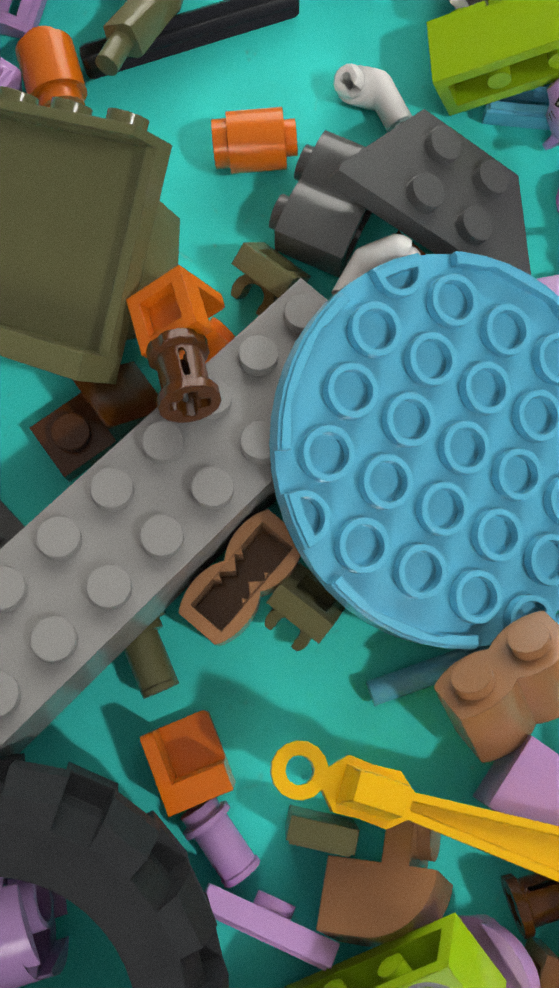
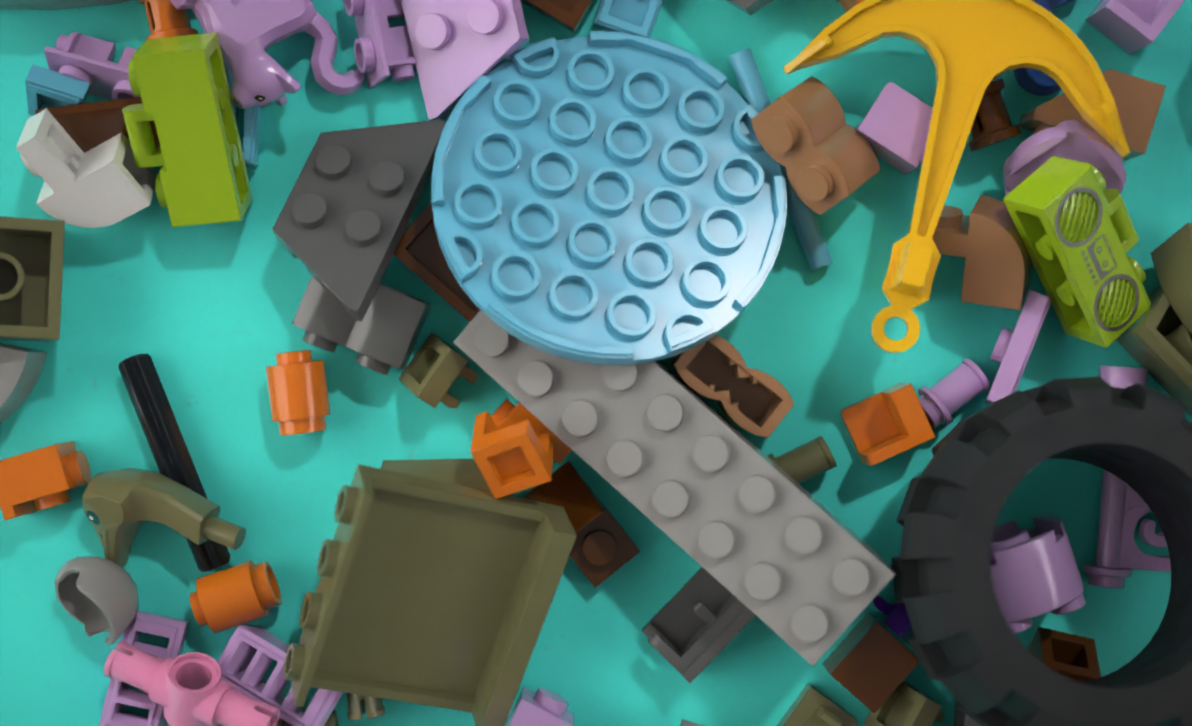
camera: 90 degrees left, 10 degrees up
(183, 375) = (552, 448): reddish brown bush -> none
(305, 605) = (754, 328): olive tile -> none
(321, 831) = (941, 308): olive tile -> none
(372, 90) = (234, 273): white arm -> none
(373, 255) = (426, 274): white arm -> none

